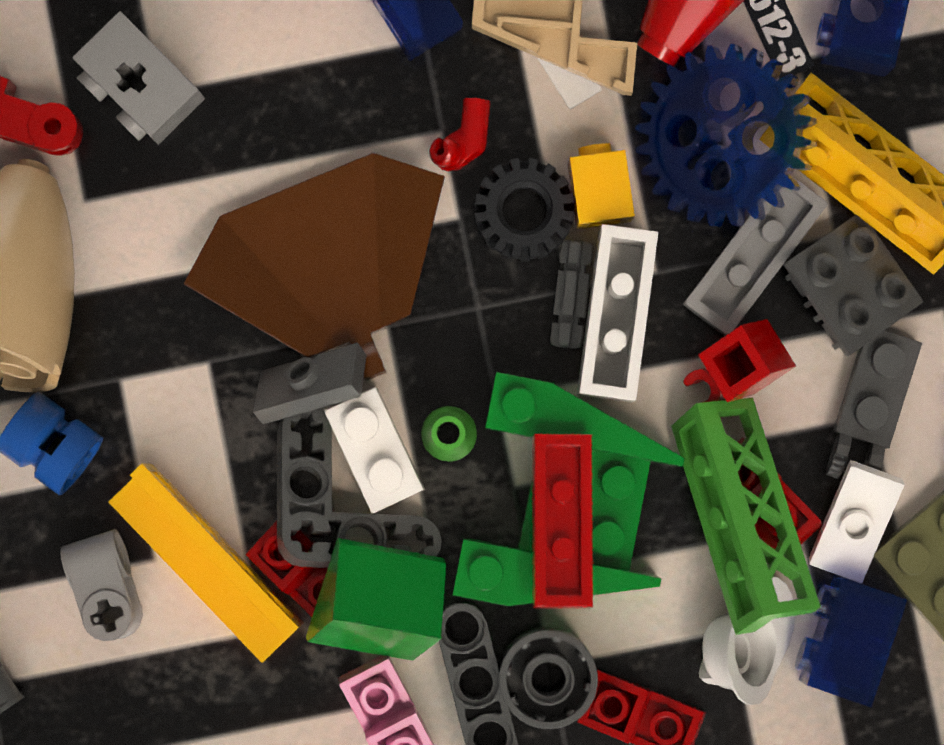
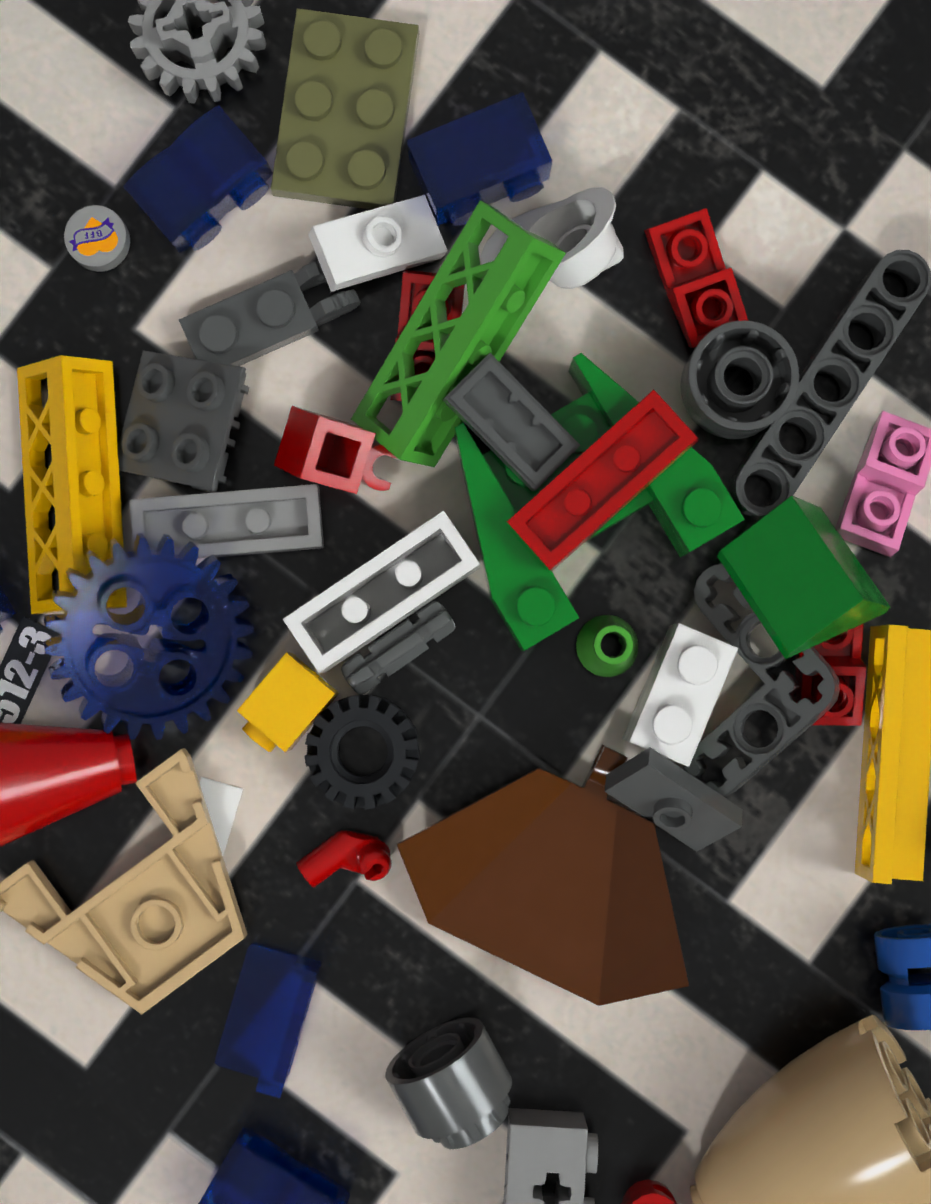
camera: 135 degrees left, 0 degrees up
(256, 75) = (452, 1083): none -> dark grey piece
(654, 497) = (511, 422): none -> dark grey plate

